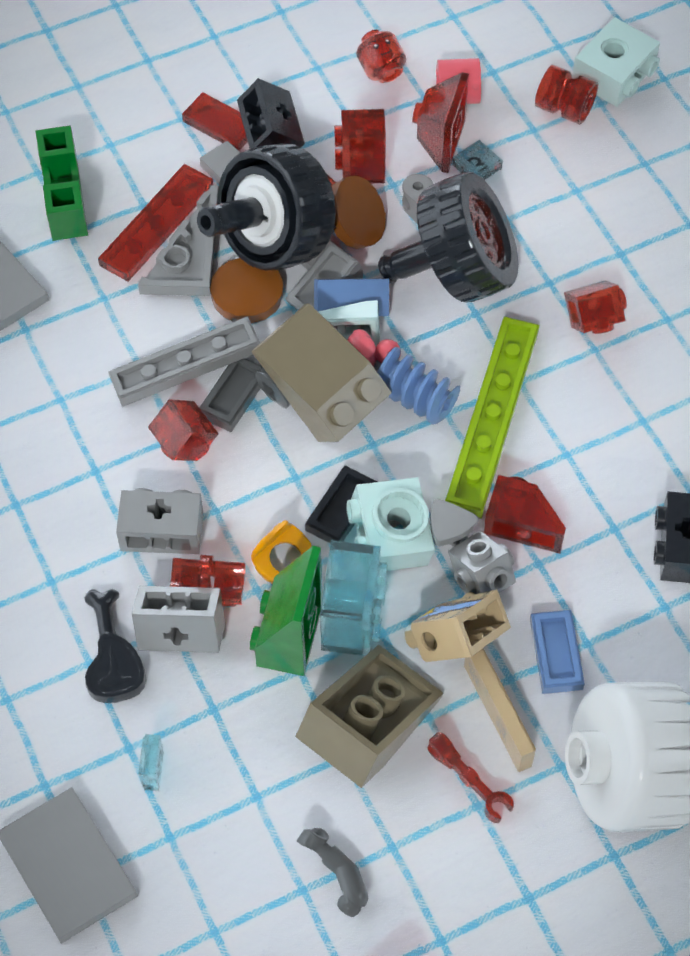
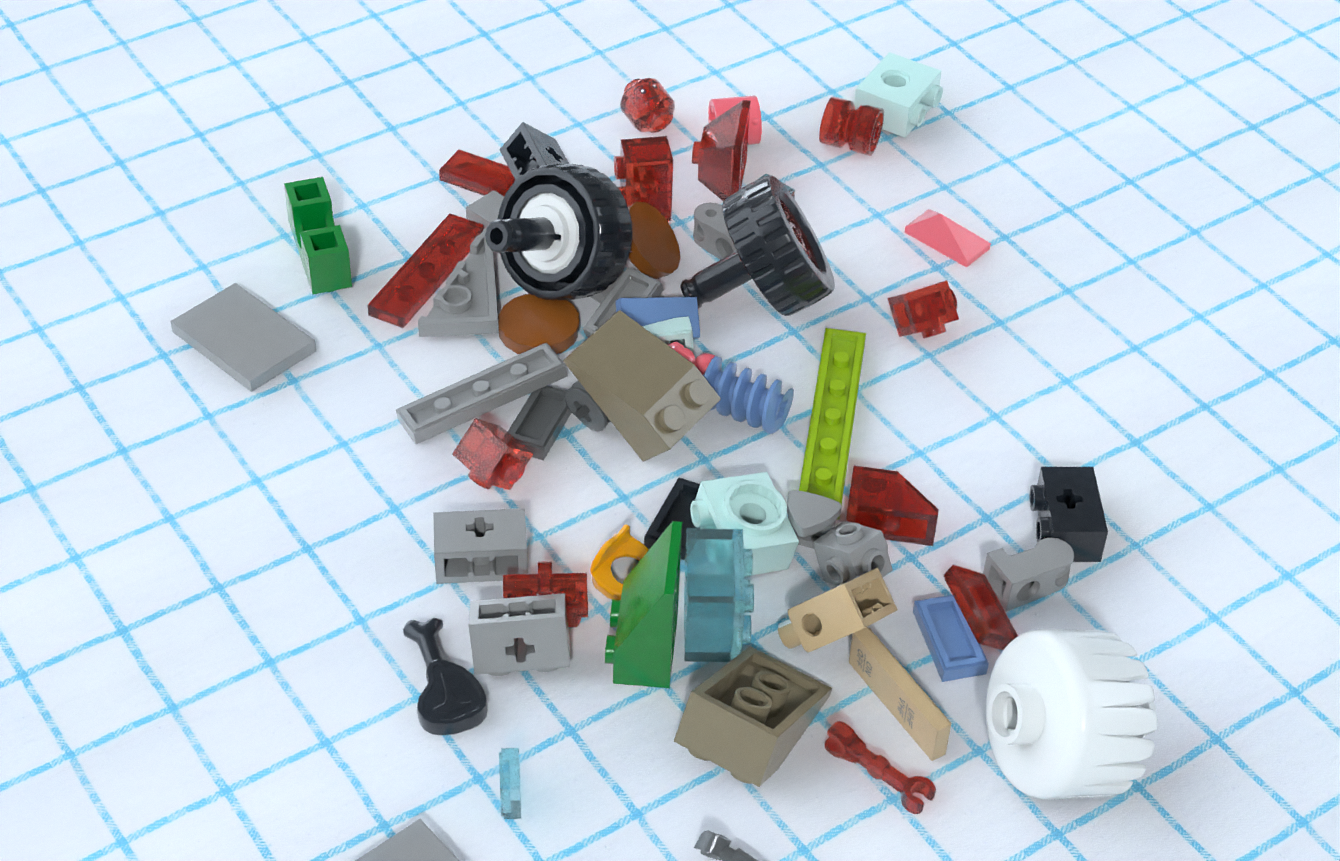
camera: 10 degrees left, 15 degrees down
(588, 628) = (980, 607): none -> clear red tile
(636, 222) = (947, 237): none -> coral slope
(638, 596) = (1030, 573): none -> light grey leg

